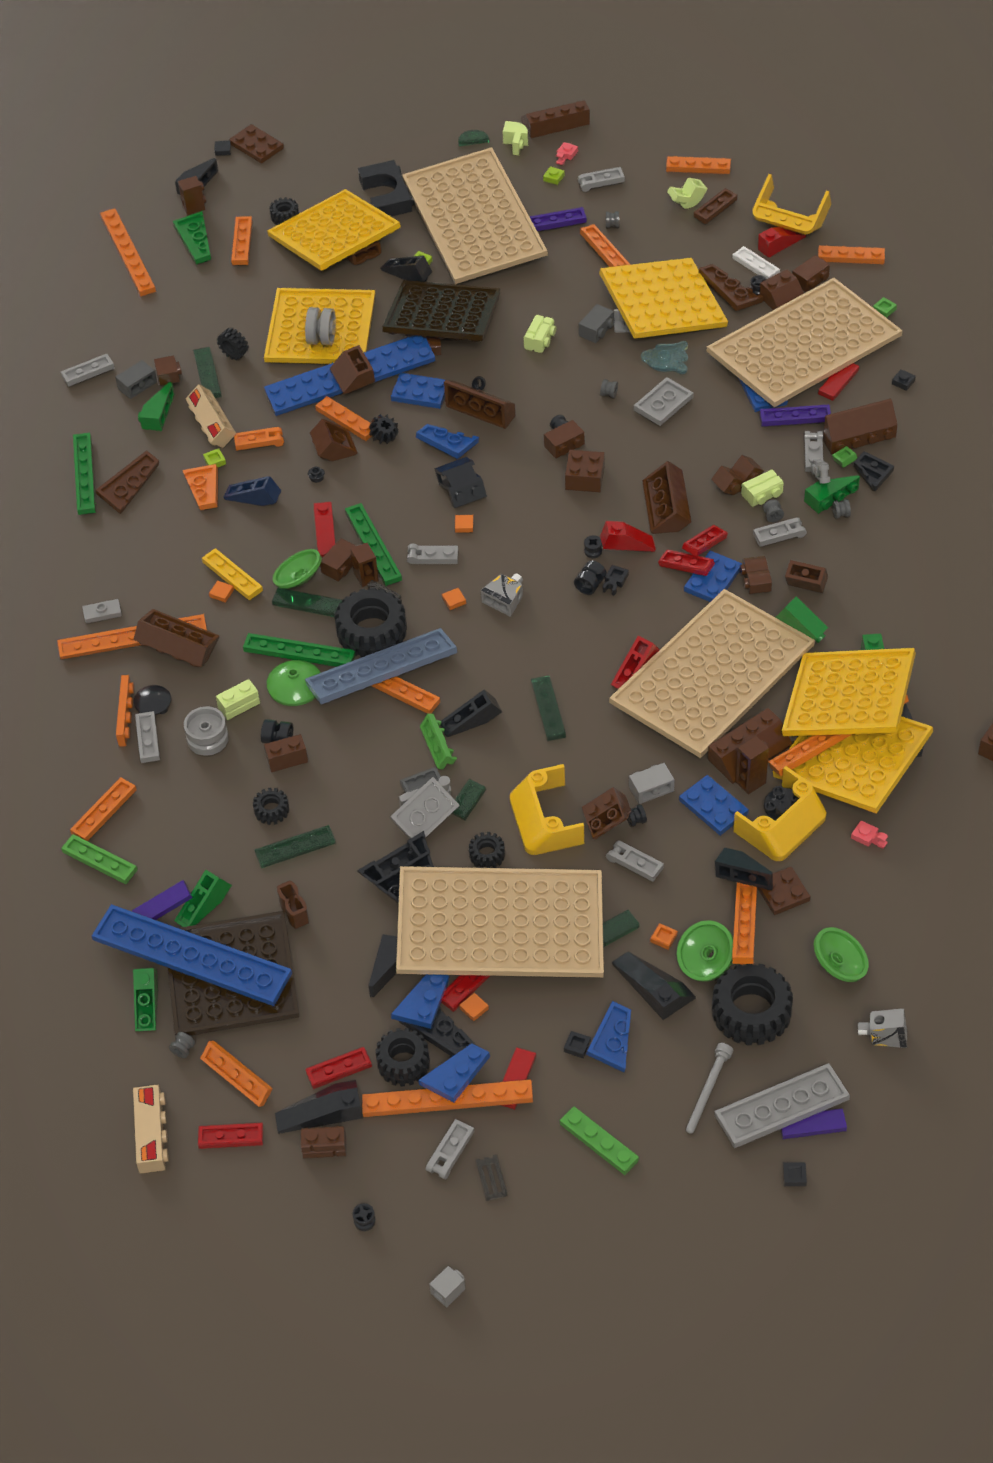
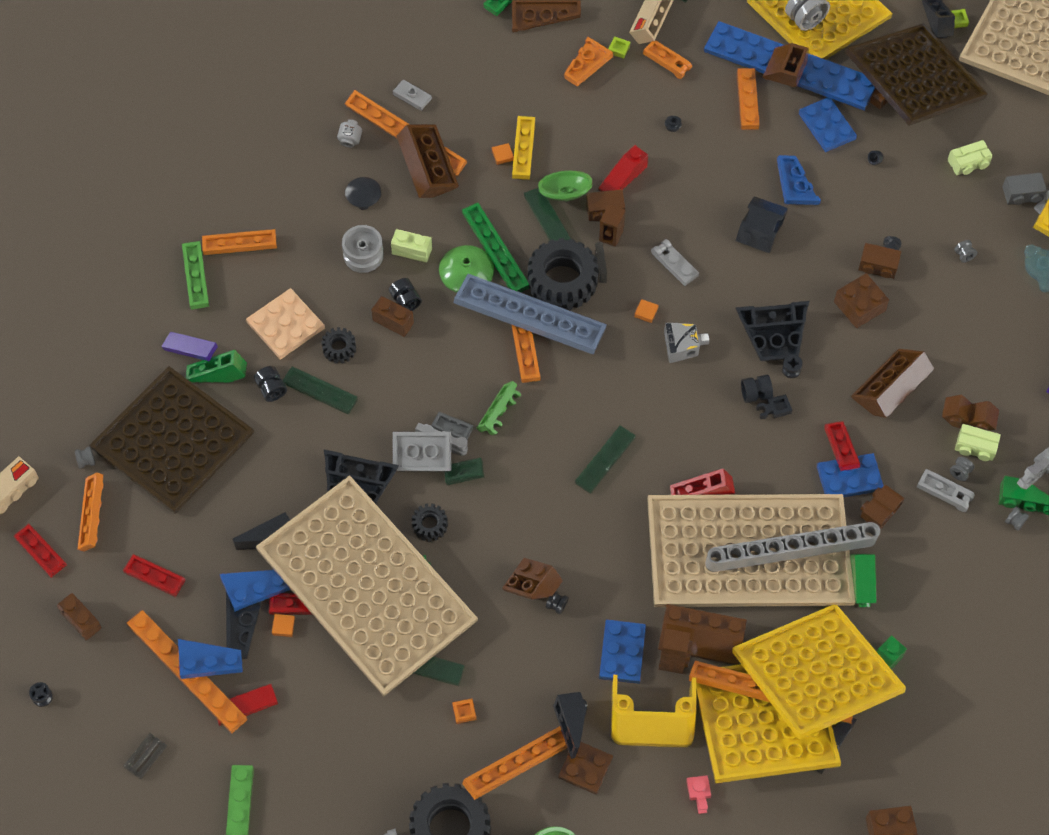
camera: 45 degrees right, 10 degrees up
(91, 671) = (349, 133): none -> light grey head
(124, 714) = (335, 182): orange plate -> none
(145, 998) = (105, 400): green slope -> none
(147, 737) = (326, 216): light grey plate -> none
(192, 955) = (160, 402): blue plate -> none
(210, 829) = (285, 323): none -> light nougat plate
(253, 871) = (270, 383): none -> black wheel
(256, 492) = (613, 98): dark blue slope -> none
(293, 904) = (263, 428): reddish brown brick -> none
(329, 1106) = (115, 594): black wedge -> none
(332, 441) = (714, 108): reddish brown slope -> none
(368, 534) = (643, 215): green plate -> none
(383, 429) = (753, 129): black gear -> none
(402, 1042) = (188, 597): black tyre -> none
(447, 1286) = (27, 798): light grey brick -> none
(450, 1148) = (145, 707): light grey plate -> none
(463, 523) = (726, 259): orange tile -> none
(473, 713) = (546, 411): black slope -> none
(478, 404) = (853, 173): reddish brown slope -> none
(541, 833) = (474, 546): yellow windscreen -> none
(554, 533) = (775, 329): none -> black wedge
(577, 1044) = (309, 725): black plate -> none
(612, 1037) = (336, 745): blue wing -> none
(625, 537) = (821, 384): red slope -> none
(635, 860) = (515, 636): light grey plate -> none
(651, 783) = (598, 589): light grey brick -> none
(655, 986) = (412, 742): black wedge -> none
(663, 401) = (994, 300): light grey plate -> none
(695, 951) = (468, 751): bright green dish -> none
(704, 540) = (877, 442): red tile -> none
(738, 642) = (800, 541): none -> light grey beam
(779, 801) = (665, 697): black dish -> none
(806, 576) = (914, 546): reddish brown brick -> none

